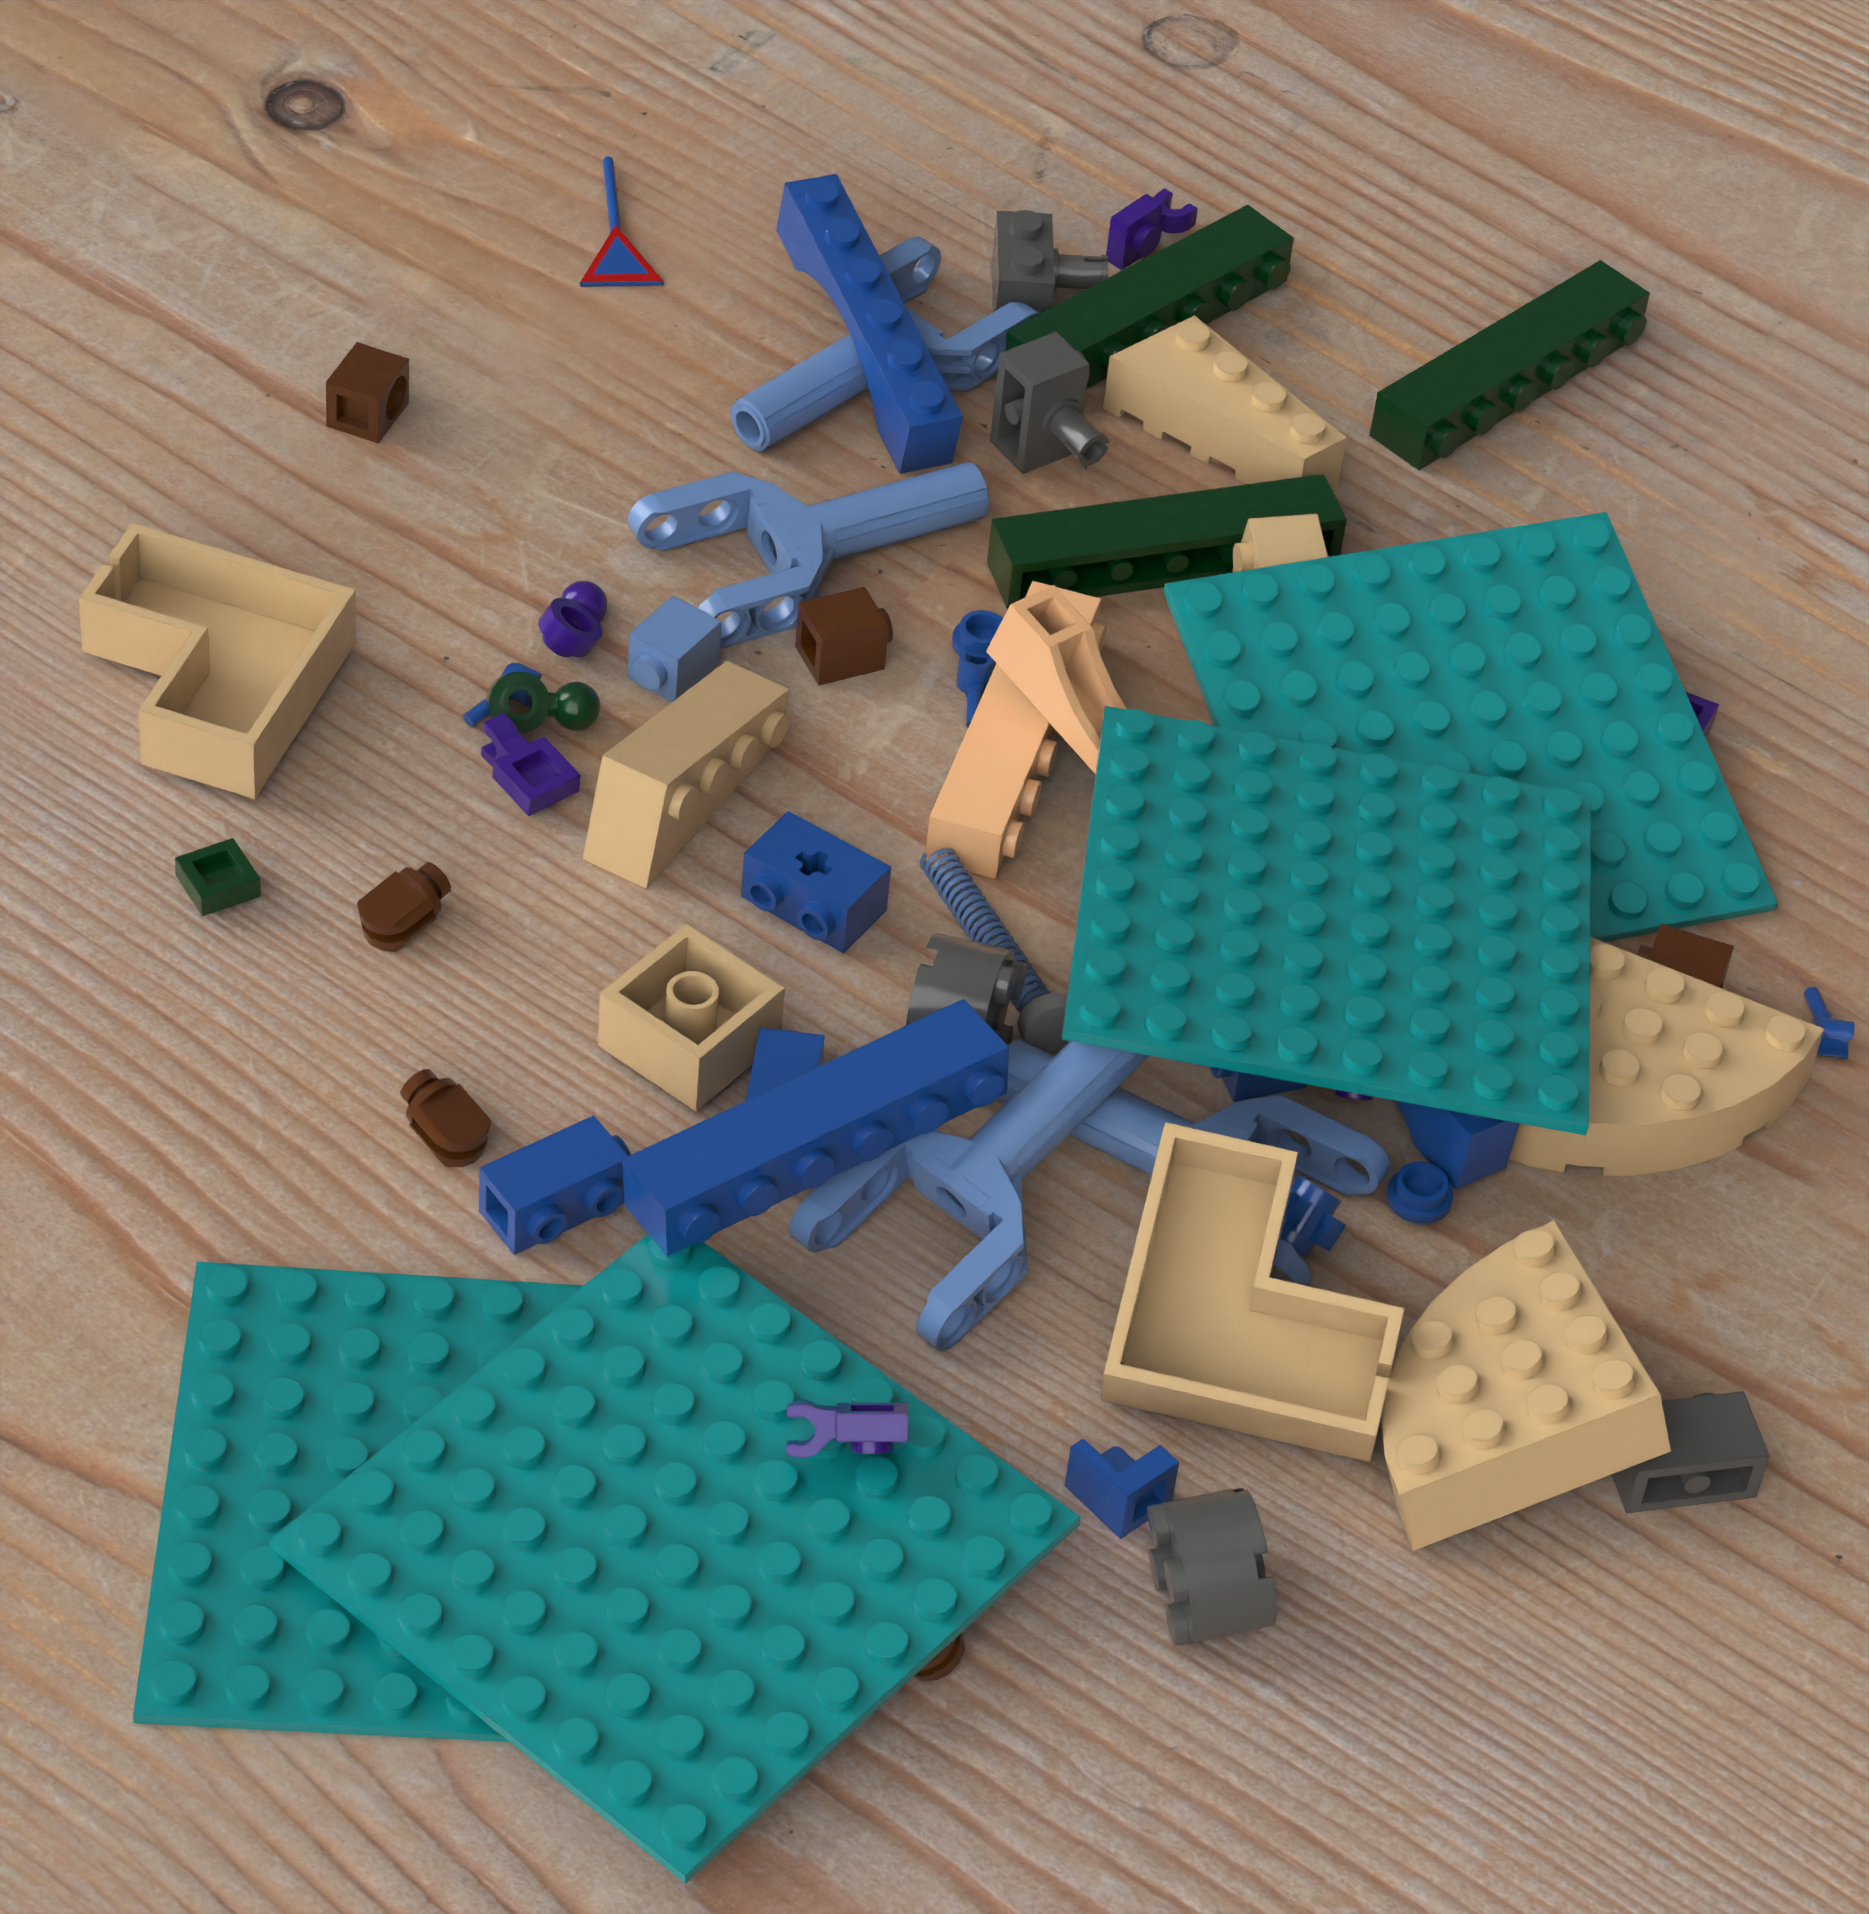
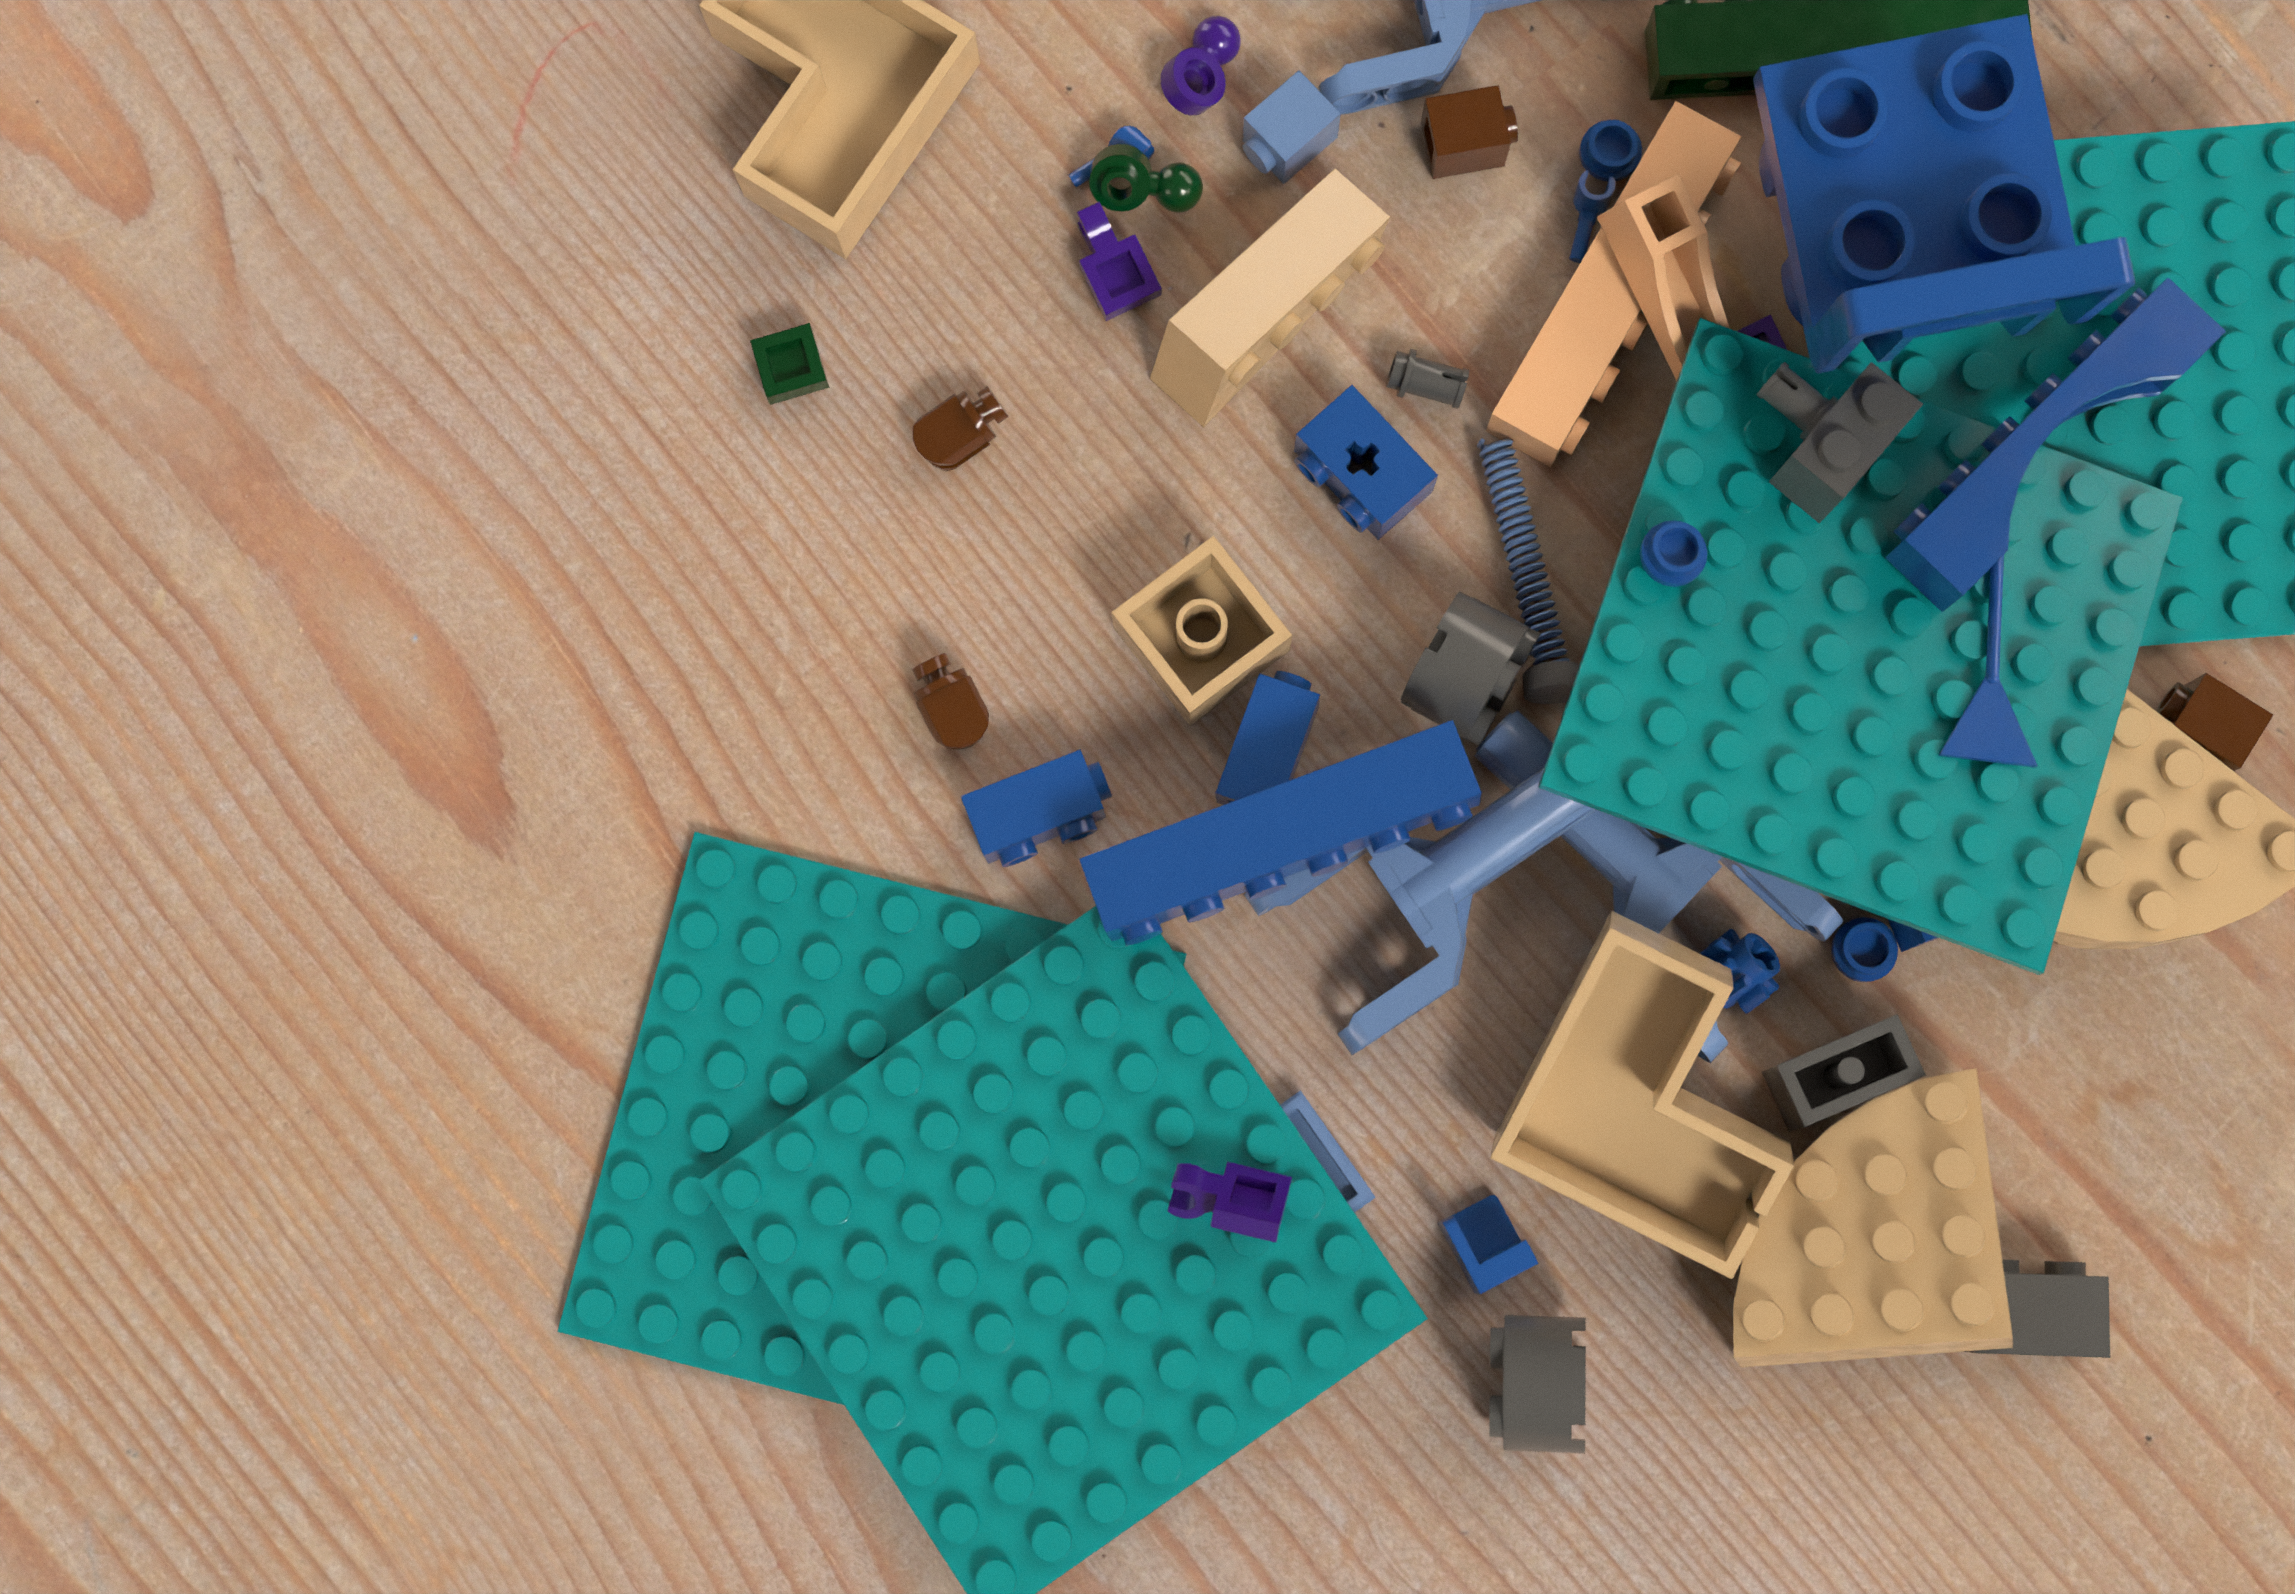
camera: 25 degrees right, 35 degrees up
(858, 817) = (1427, 378): none -> dark grey pin
(1136, 843) = (1673, 553): none -> blue plate
(1260, 749) = (1838, 434): none -> dark grey brick
(1279, 544) = (1924, 193): none -> blue piece
(1425, 1261) = (1843, 1073): none -> dark grey brick
(1467, 946) = (1988, 724): none -> blue piece
(1508, 680) = (1969, 529): none -> blue arch

